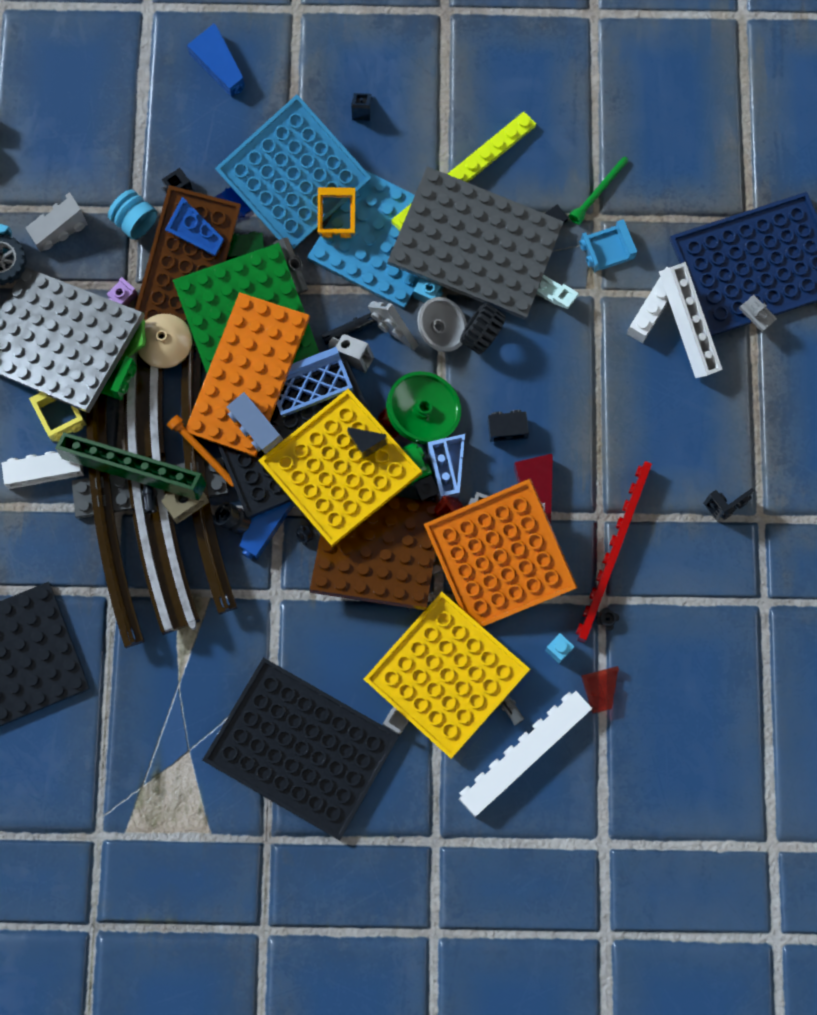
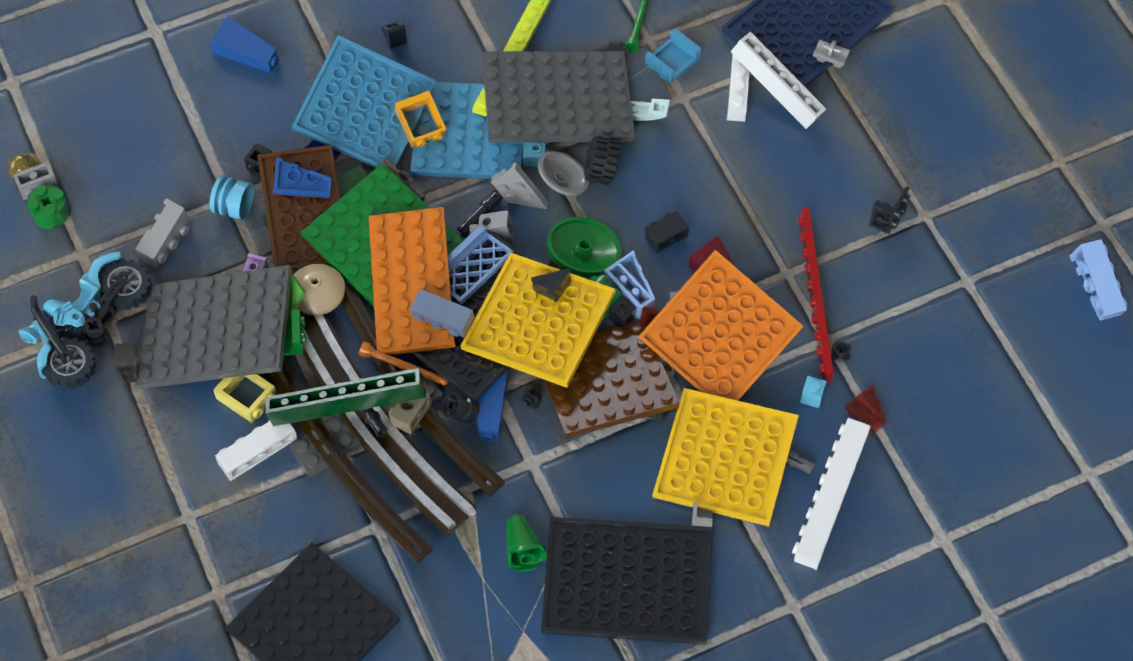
camera: 25 degrees left, 15 degrees down
(225, 672) = (523, 545): none -> green cone

